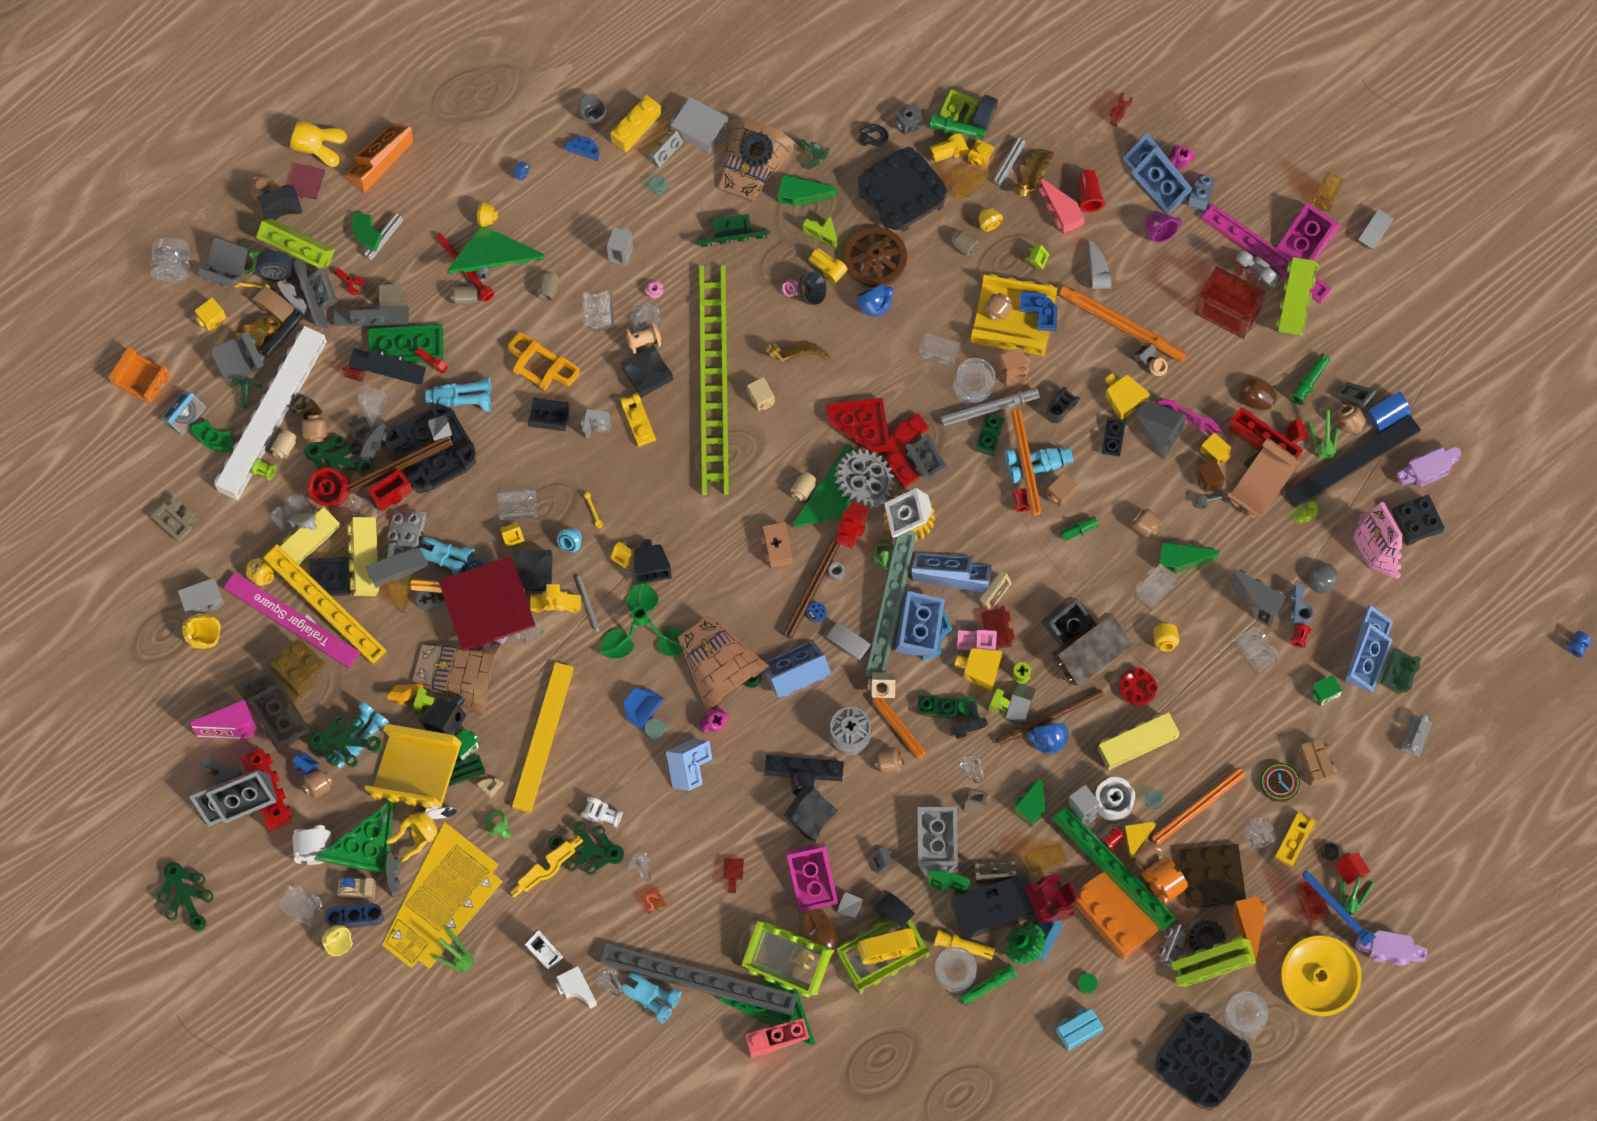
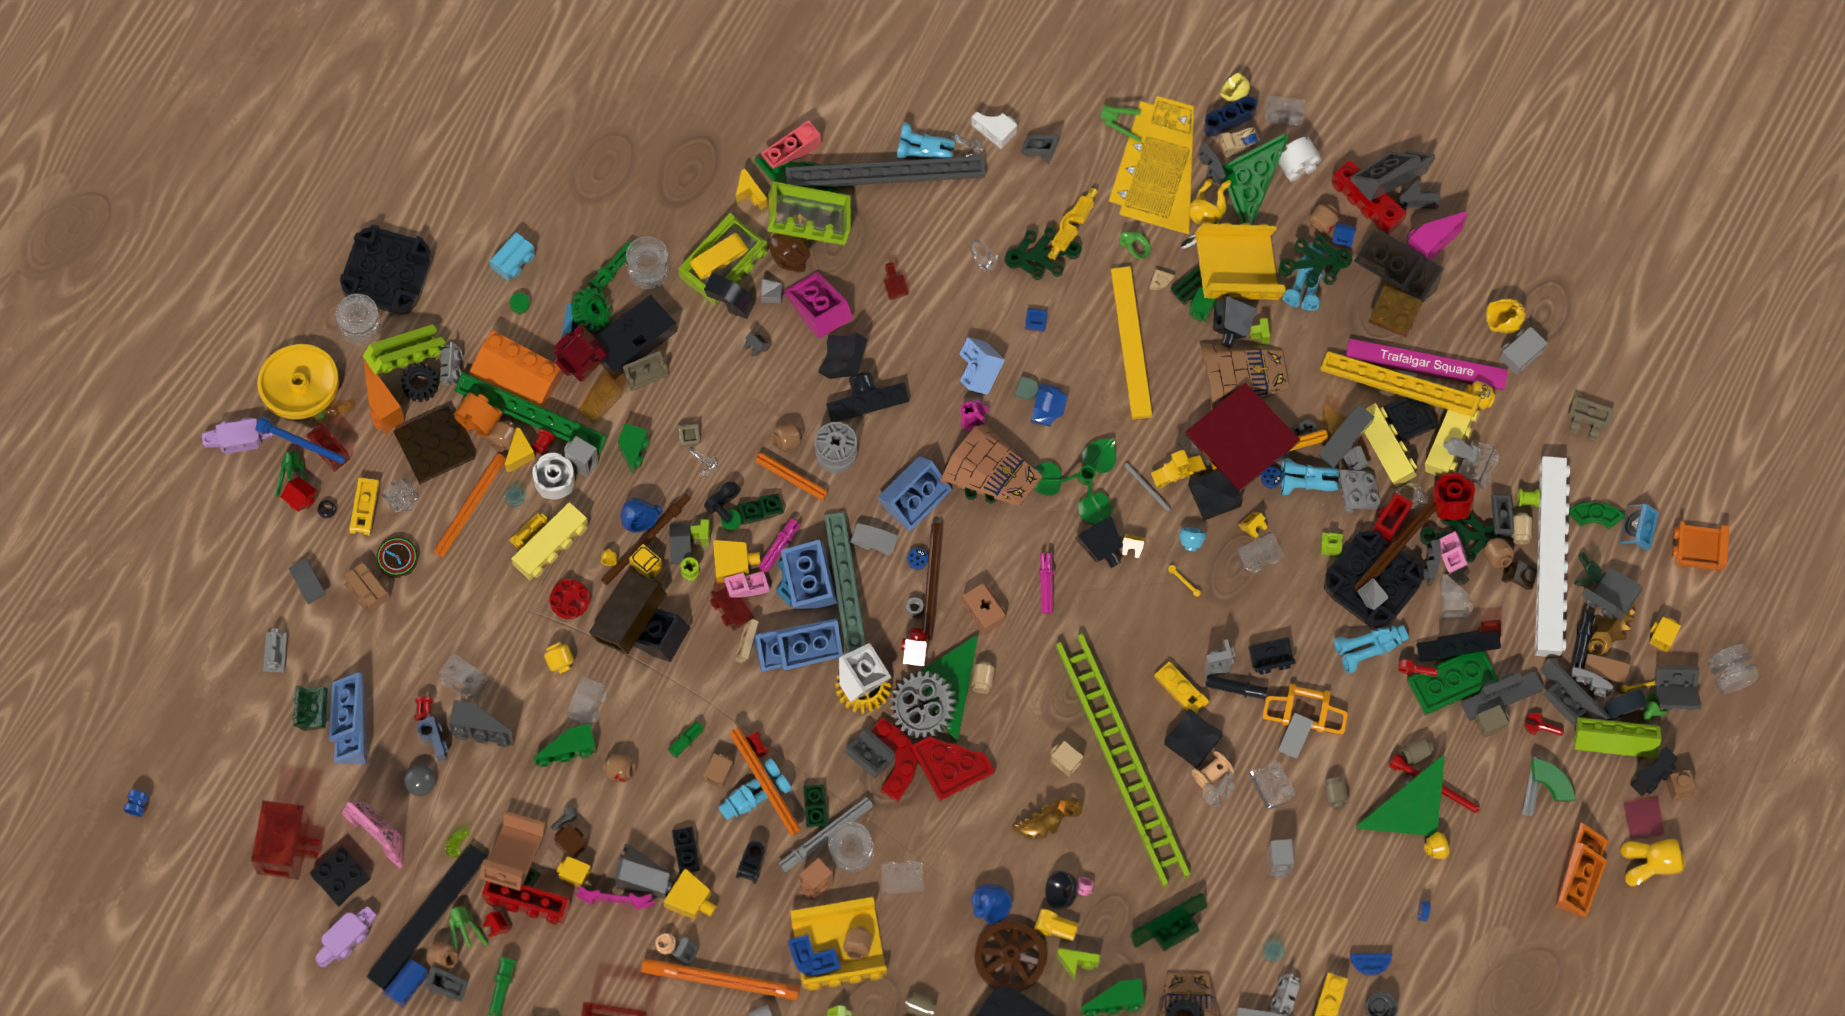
camera: 155 degrees right, 0 degrees up
(183, 893) = (1396, 82): dark green plant -> none
(294, 460) = (1502, 515): none -> dark grey slope
(353, 441) = (1453, 552): none -> bright pink slope
(402, 693) = (1284, 332): light orange piece -> none
(451, 494) = (1331, 544): none -> lime tile
(560, 343) = (1295, 735): none -> light grey tile
(584, 398) = (1236, 687): none -> black axle
(598, 812) = (1044, 290): white connector -> none
(619, 791) = (1036, 320): none -> blue tile
(652, 900) = (959, 232): clear orange tile -> none
(654, 294) = (1223, 837): bright pink plate -> none
(710, 555) = (1046, 578): none -> dark pink axle
(835, 1015) = (749, 188): none -> yellow slope
(885, 558) = (870, 631): bright green piece -> none
(885, 692) = (822, 505): tan brick -> none
(927, 671) = (784, 538): none -> dark pink axle
(937, 839) = (712, 380): light grey slope -> none
(942, 880) = (689, 339): green slope -> none
(948, 940) = (659, 293): yellow pin -> none
(1058, 693) = (646, 562): none -> yellow brick
(1089, 712) = (609, 557): none -> yellow hinge
(1152, 760) = (528, 531): none -> yellow hinge
(1257, 393) = (551, 953): reddish brown hat -> none
(1325, 690) = (380, 661): green brick -> none
(1369, 787) = (307, 581): none -> dark grey slope
(1461, 556) = (282, 839): none -> clear red piece

